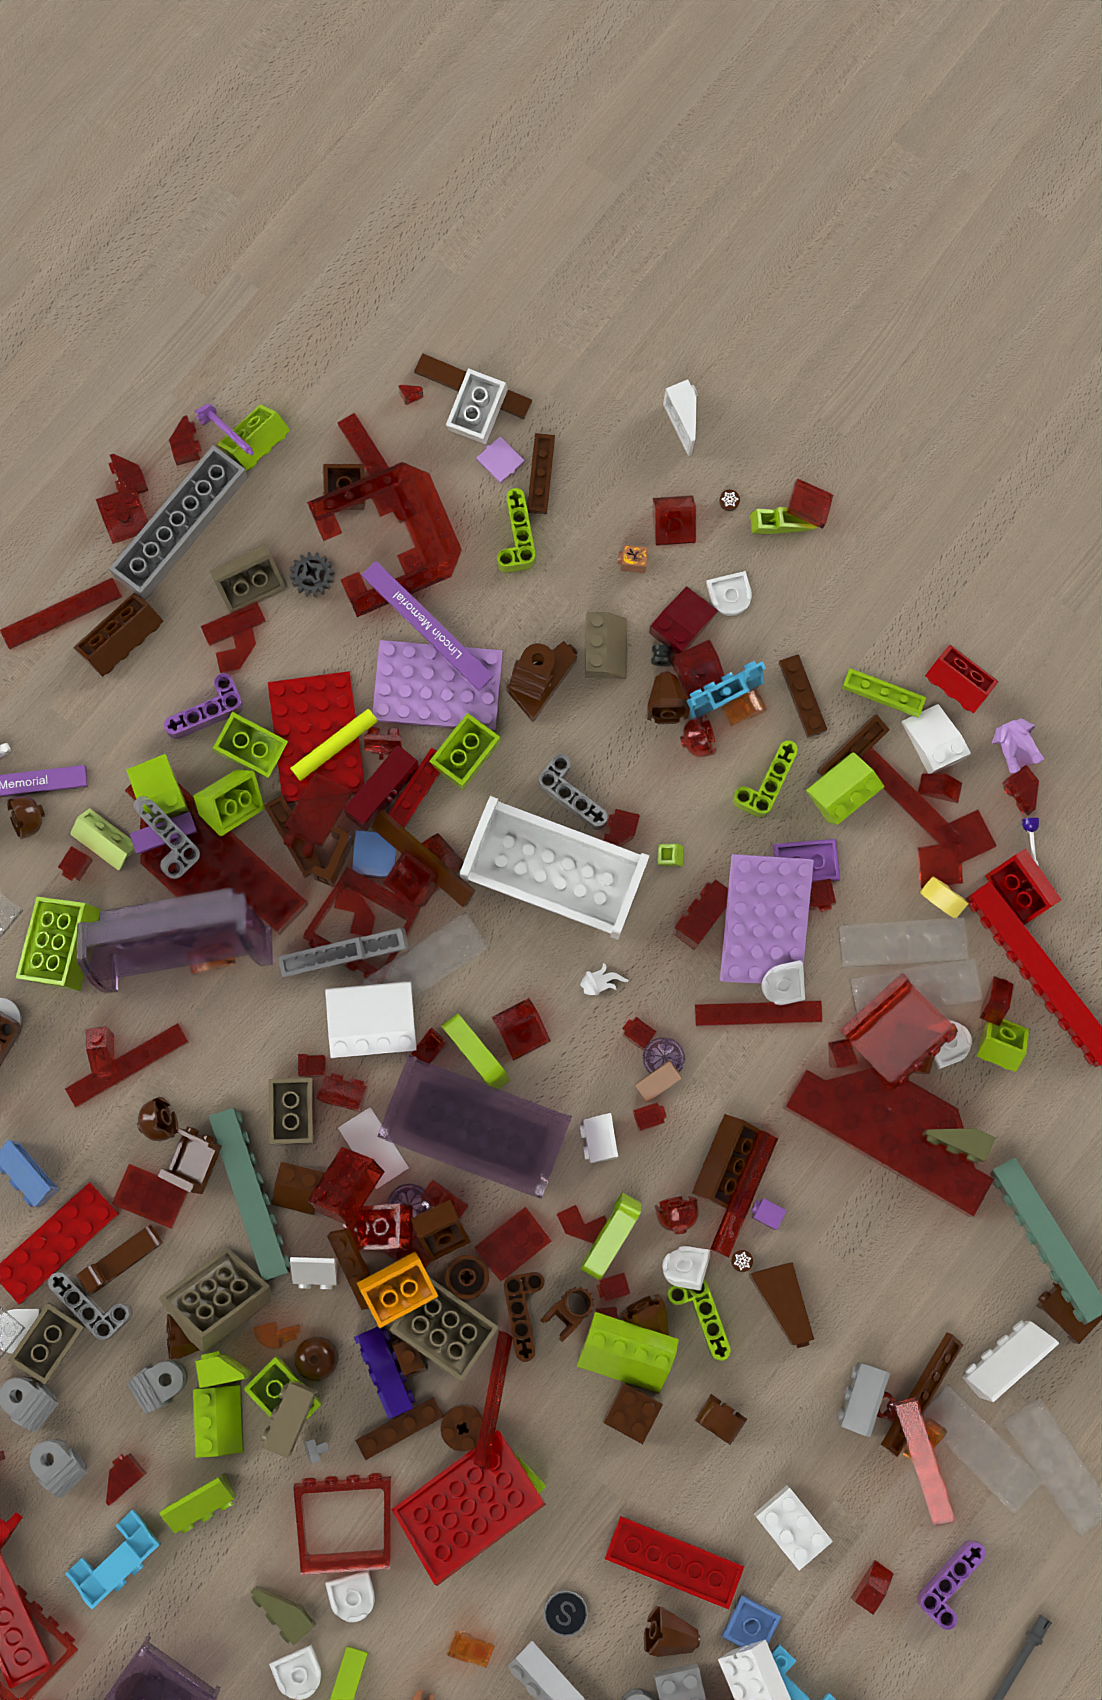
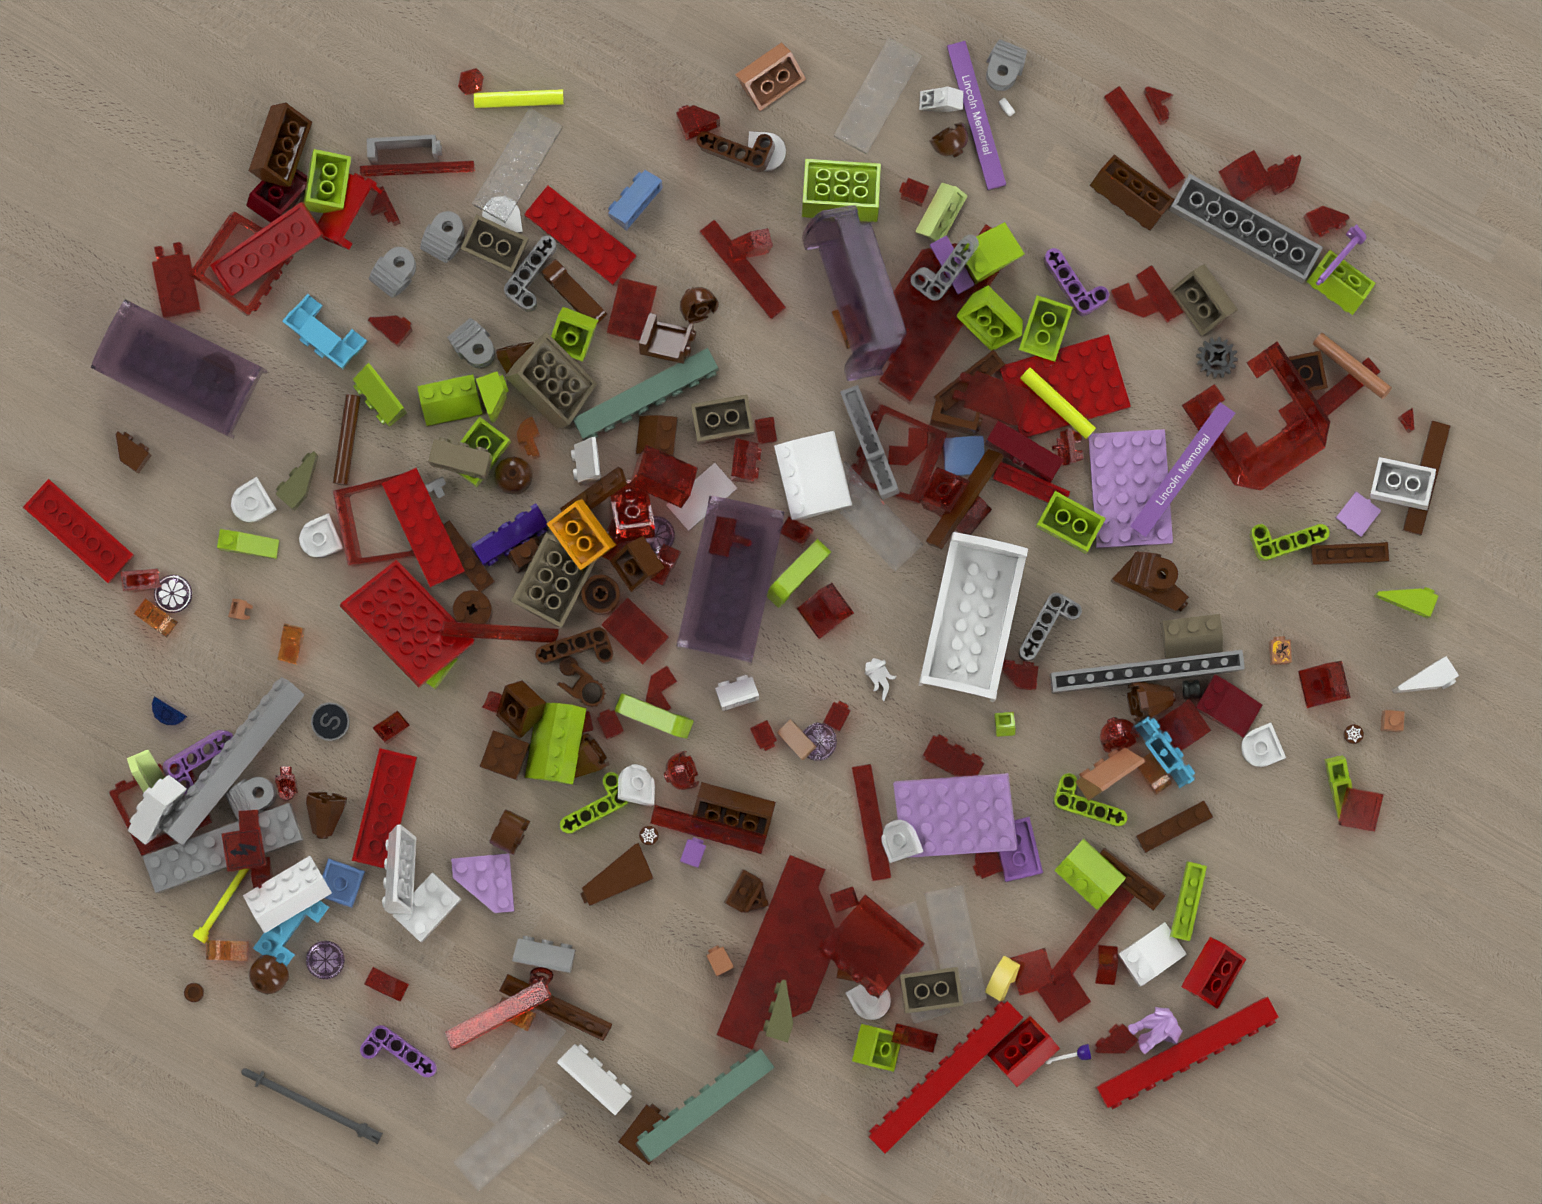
camera: 85 degrees right, 5 degrees up
(21, 594) = (1155, 99): none -> clear red slope
(165, 1265) = (574, 332): none -> lime brick
(243, 1549) = (346, 439): none -> reddish brown piece
(344, 437) = (1352, 366): none -> nougat piece
(359, 1472) = (423, 527): none -> red plate
(424, 1127) = (724, 535): none -> clear red plate
(540, 1328) = (565, 666): none -> reddish brown tile
(569, 1418) = (492, 701): none -> clear red slope
(582, 1387) = (520, 707): none -> reddish brown slope
(582, 1542) = (391, 727): none -> clear red slope
(601, 413) = (1414, 600): none -> lime slope
(632, 1676) = (286, 783): none -> clear red hips
(636, 697) = (1147, 671): none -> light grey brick
(722, 458) = (1392, 721): none -> nougat brick
(740, 751) = (1108, 772): none -> nougat slope
(753, 1555) = (400, 871): none -> white slope
(768, 1452) = (487, 880): none -> lavender plate
(819, 1160) = (747, 893): none -> reddish brown slope
(837, 1656) = (325, 960): none -> clear purple dish
(890, 1201) = (719, 960): none -> nougat brick
(951, 973) = (931, 990): none -> dark tan brick
(1040, 711) = (1187, 1052): none -> red brick

